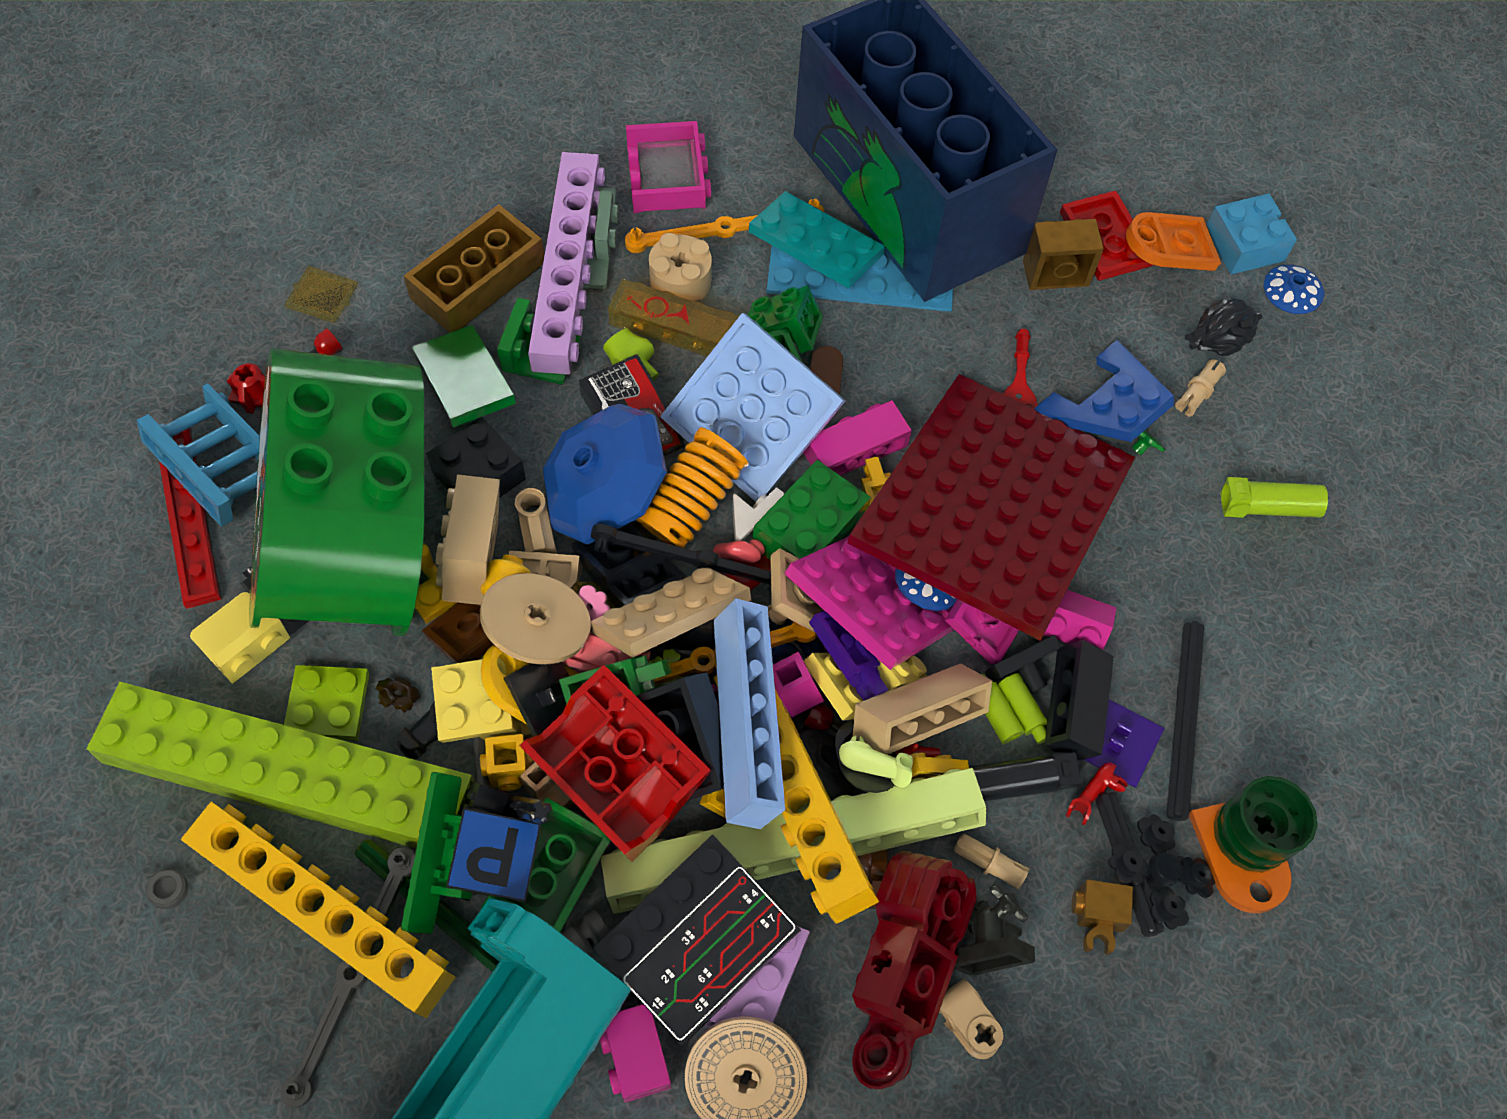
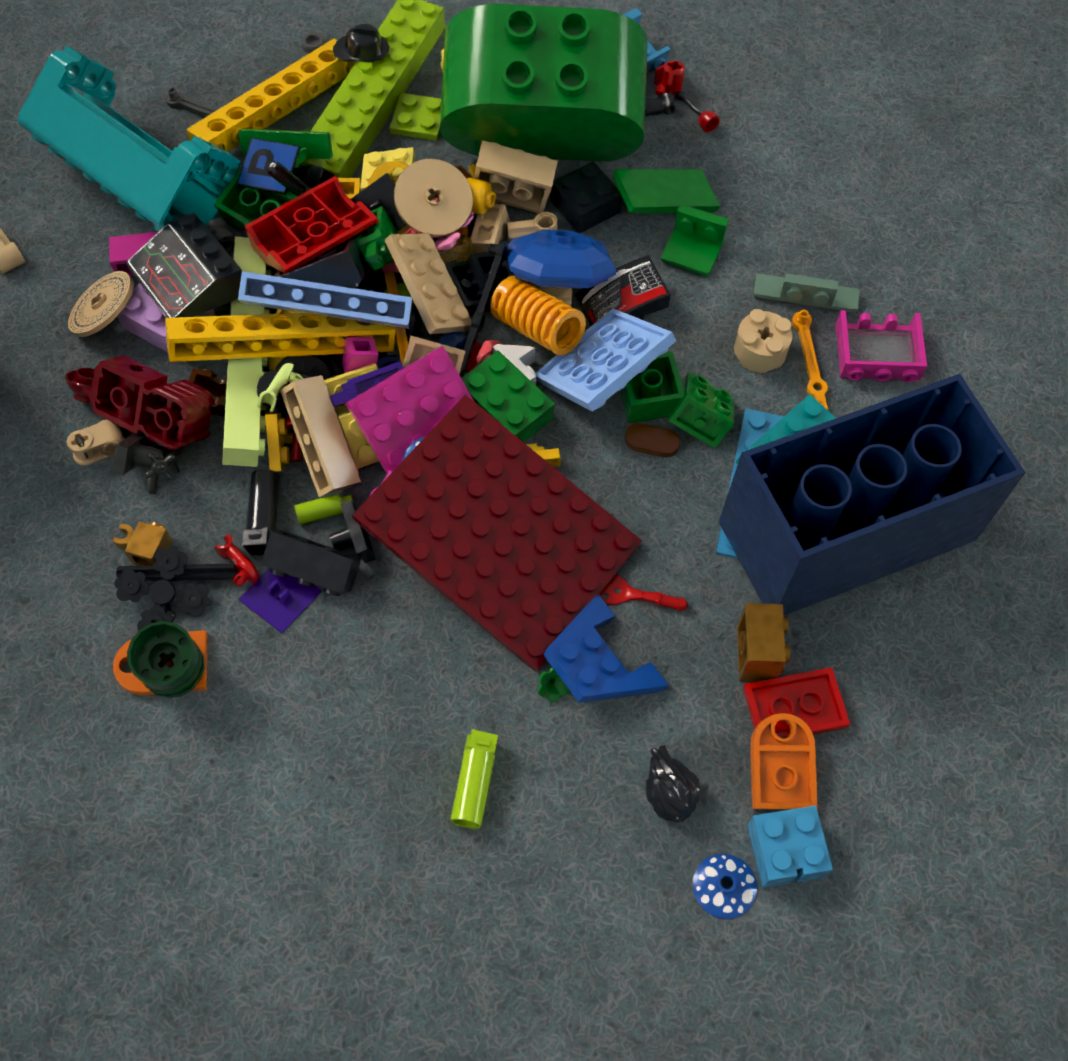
camera: 100 degrees right, 0 degrees up
(213, 786) = (361, 44): none -> black piece
(321, 294) = (757, 122): clear yellow piece -> none
(397, 693) = (419, 147): dark brown plant -> none
(475, 269) = (768, 204): pearl gold brick -> none
(566, 264) = (771, 259): lavender brick -> none
(627, 344) = (683, 302): lime piece -> none
(668, 317) = (713, 333): clear yellow brick -> none
(857, 438) = (579, 447): dark pink brick -> none
(991, 861) = (204, 480): tan axle -> none
(1024, 707) = (321, 526): lime cylinder -> none
(1082, 618) = (379, 576): dark pink brick -> none
(1185, 722) = (284, 648): black axle -> none
(1200, 387) = (607, 750): tan pin -> none

